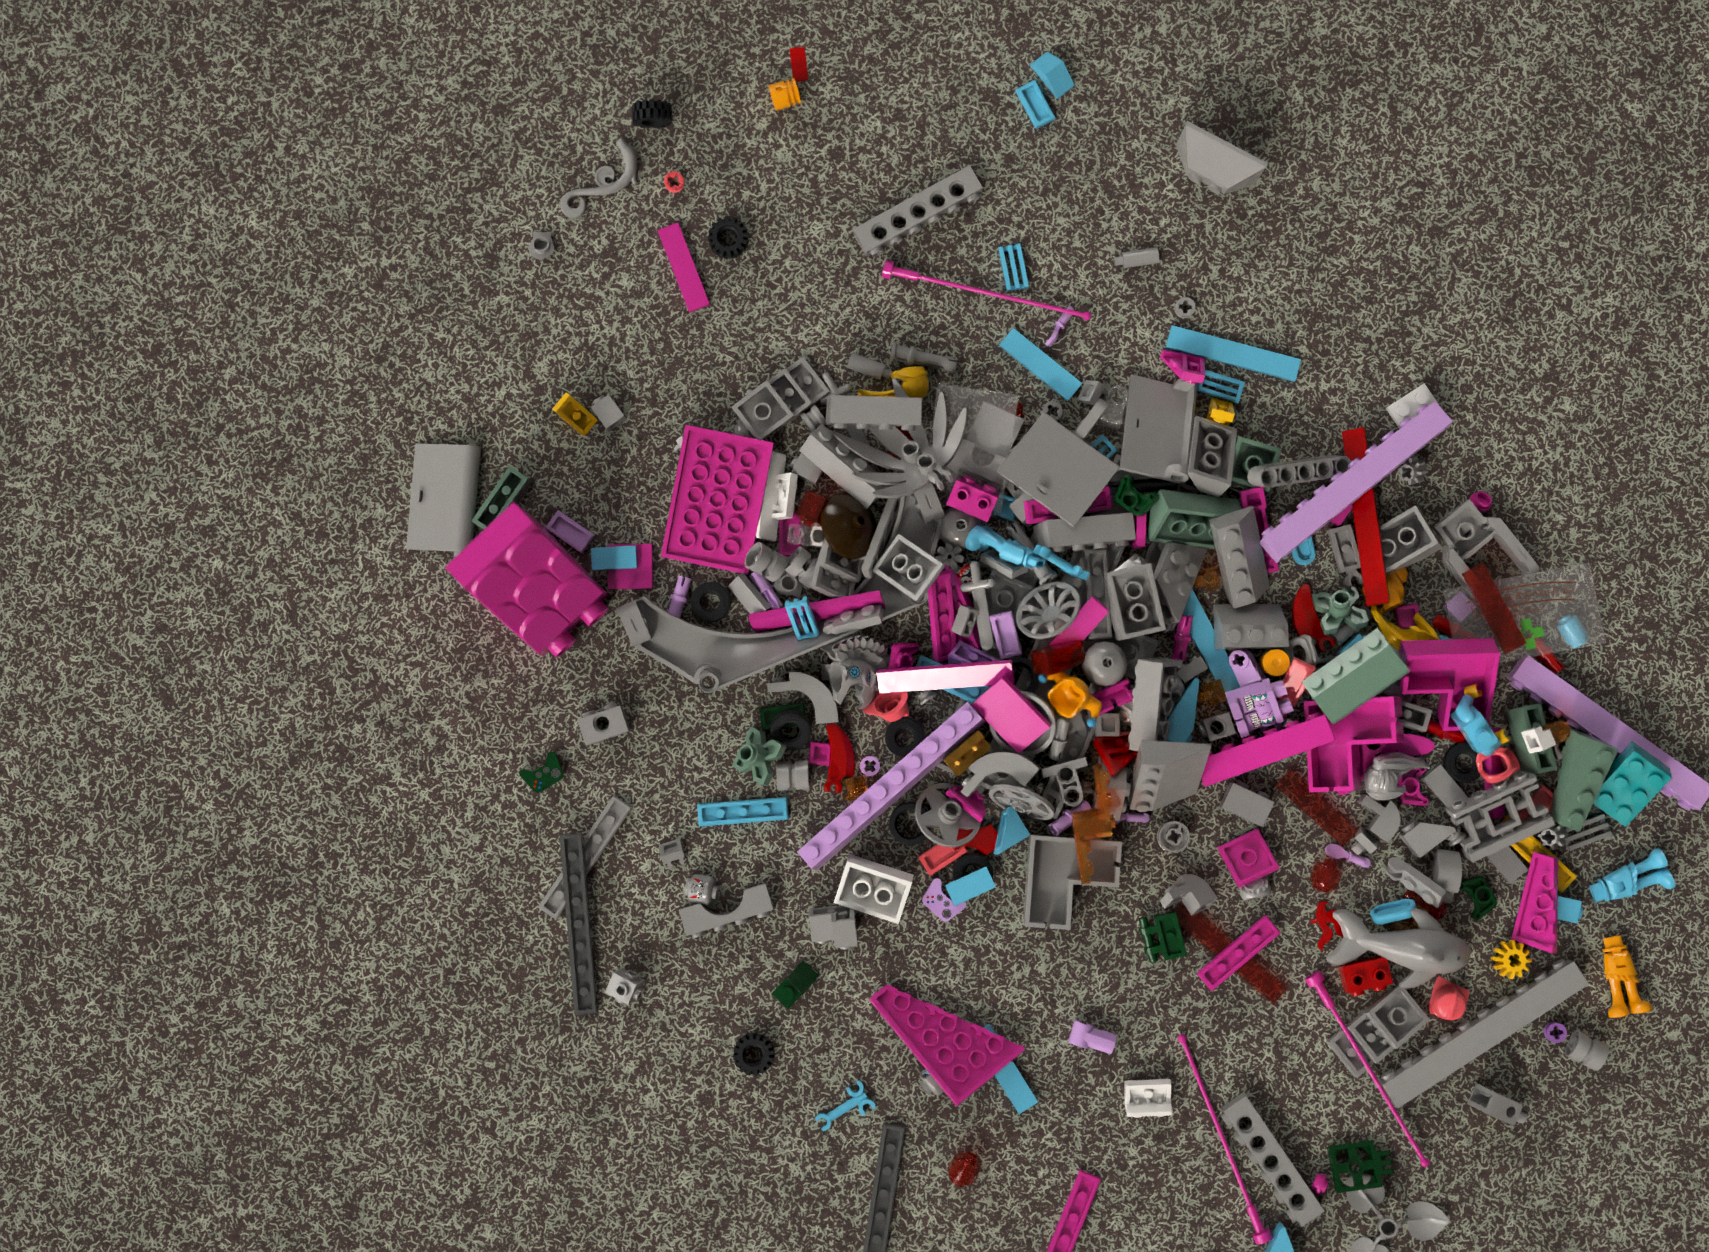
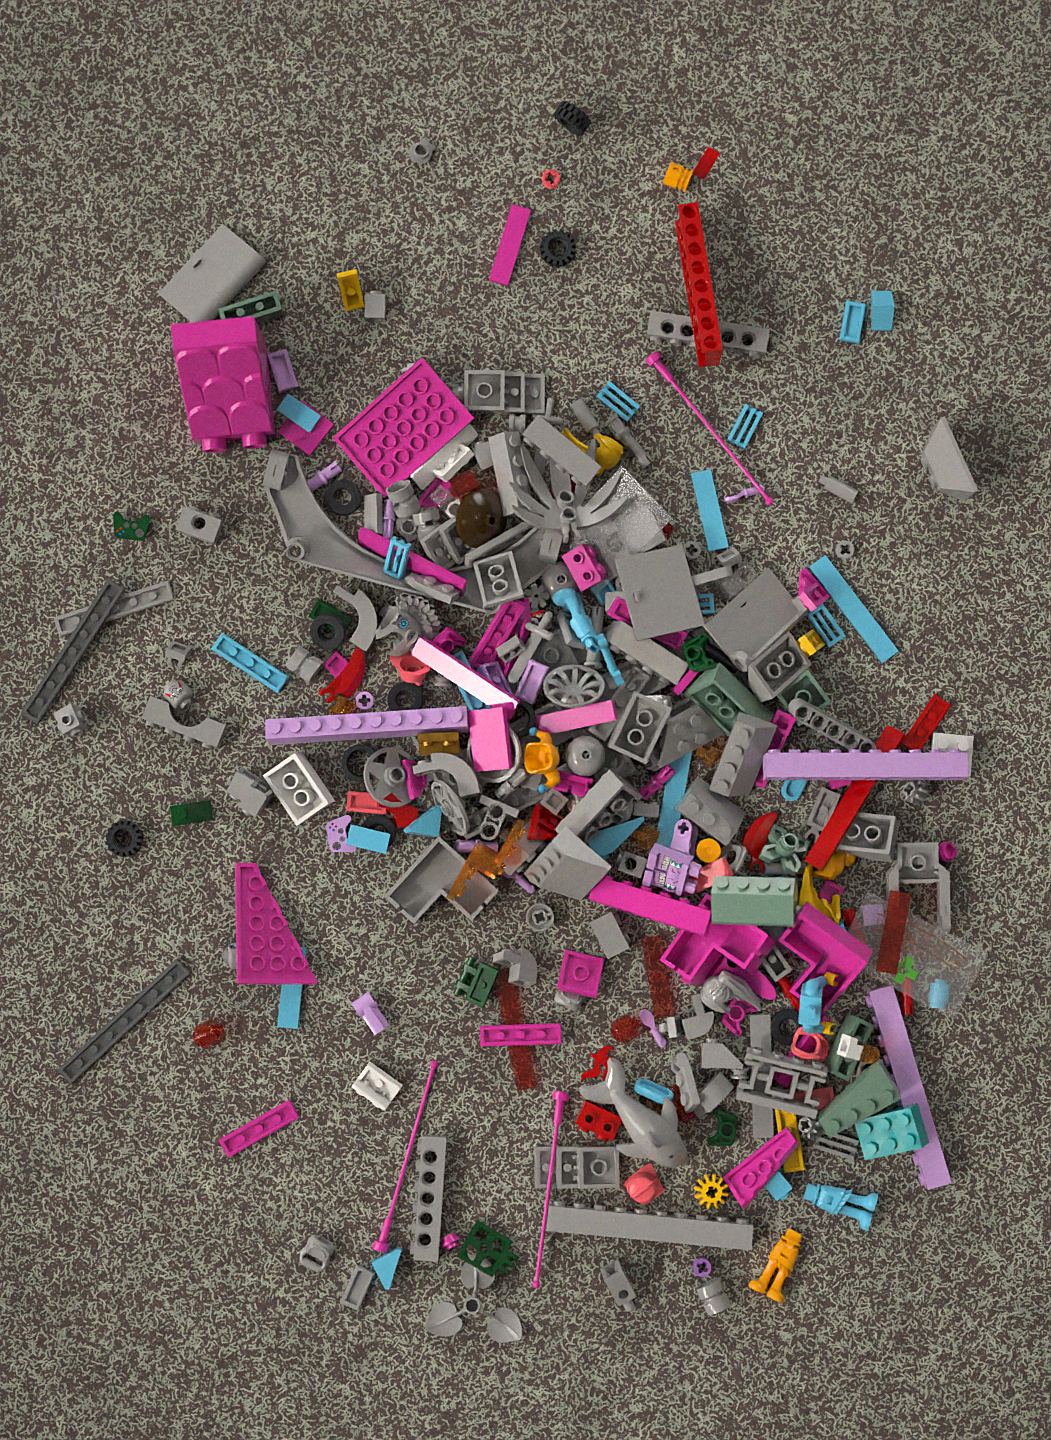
camera: 30 degrees right, 0 degrees up
(604, 188) = (497, 145): light grey plant -> none
(757, 755) = (291, 630): sand green plant -> none
(857, 1098) = (174, 928): medium azure bar -> none
(880, 174) = (698, 285): none -> red tile
(885, 331) = (605, 391): none -> medium azure tile
(1057, 657) = (555, 725): clear red slope -> none
(1374, 404) = (926, 723): none -> red tile

